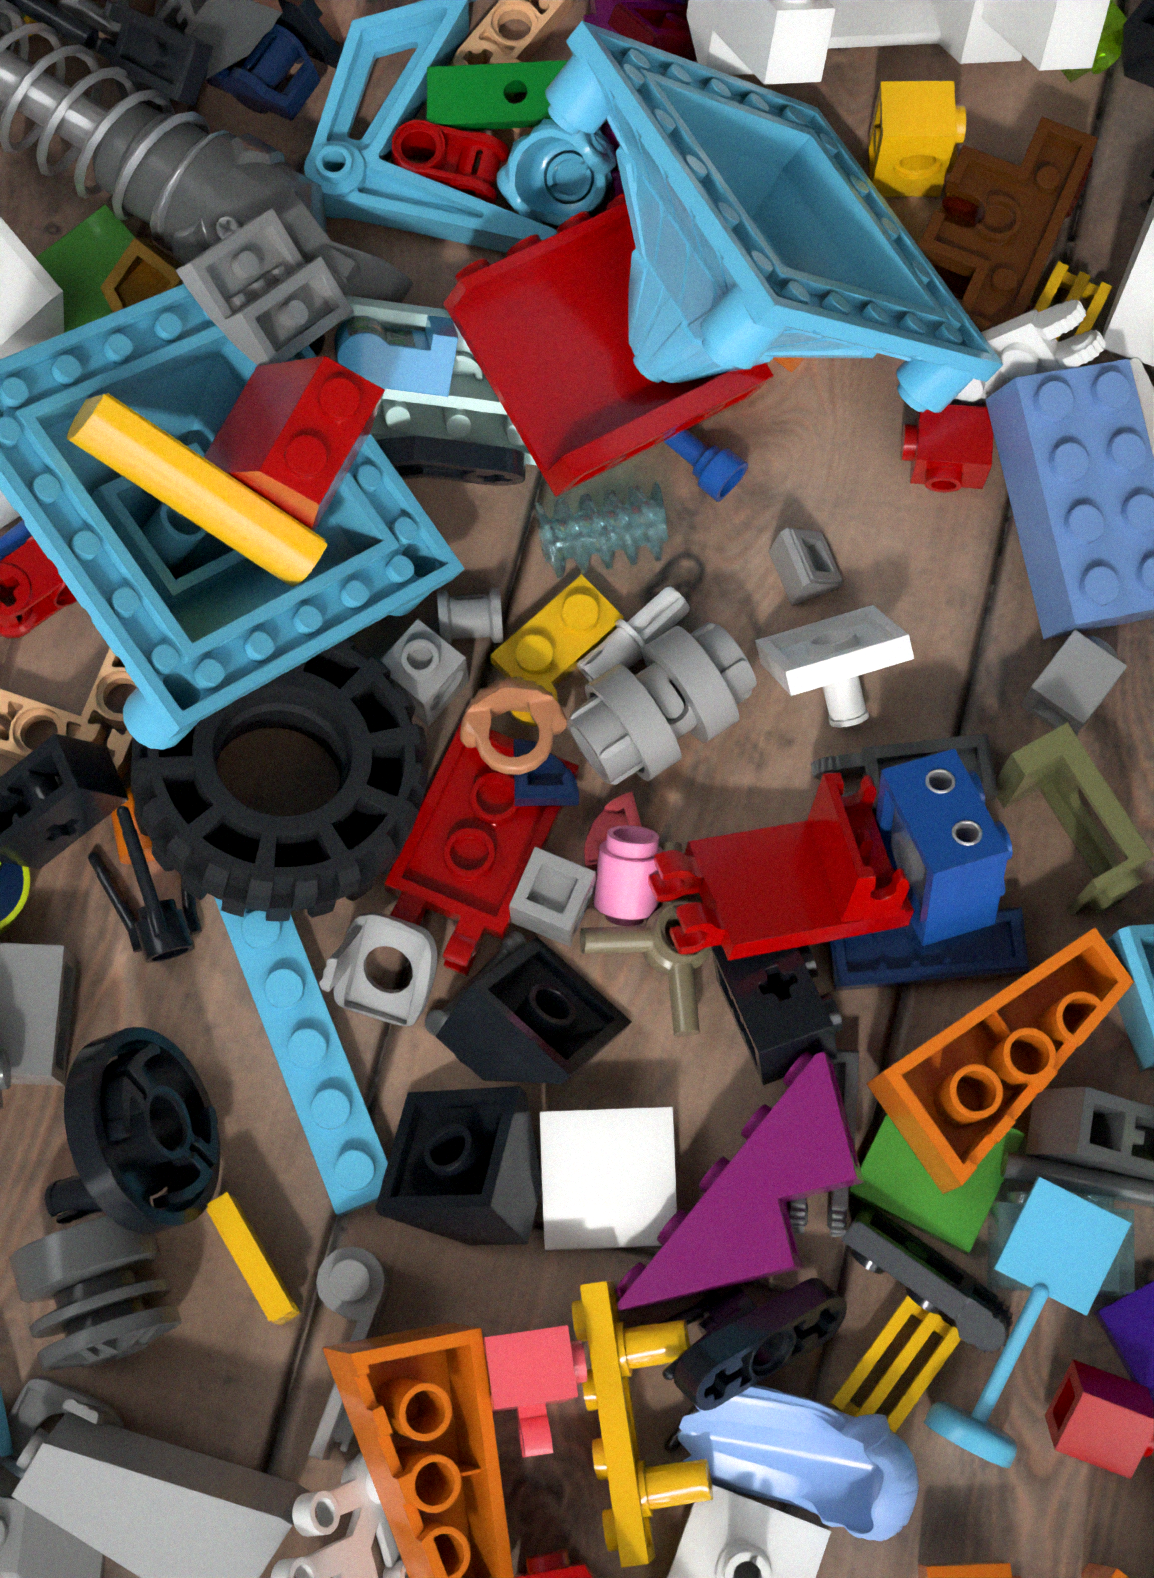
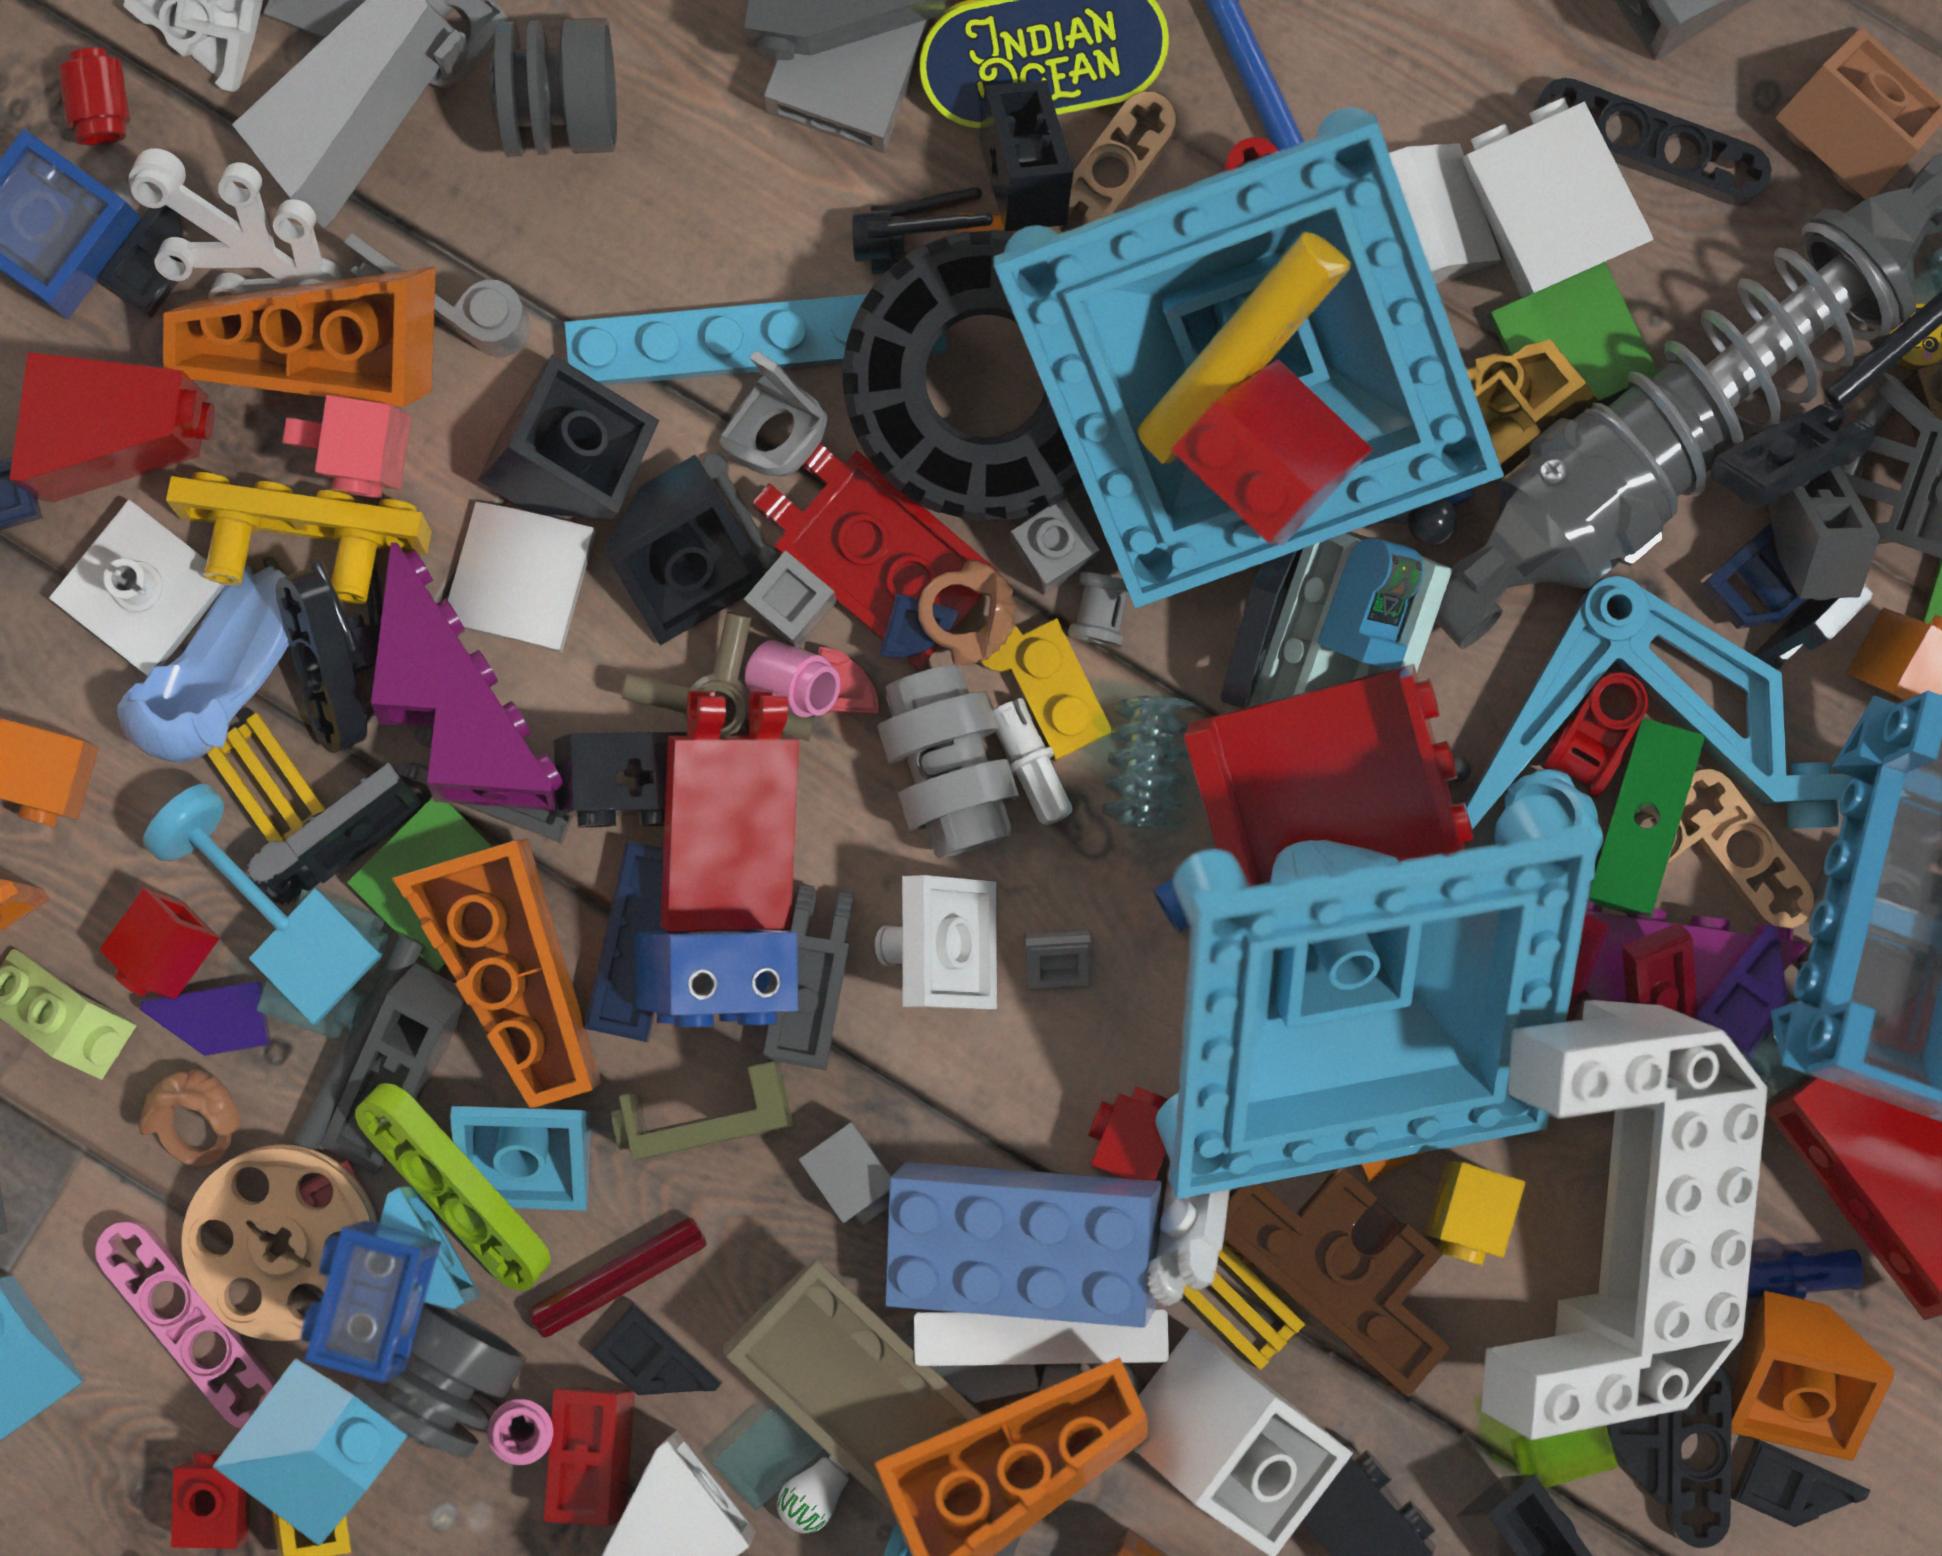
camera: 105 degrees right, 10 degrees up
(135, 1132) = (687, 128): black piece -> none
(252, 1259) = (546, 236): yellow tile -> none
(265, 291) = (1455, 481): light grey slope -> none
(855, 852) = (737, 894): red hinge -> none

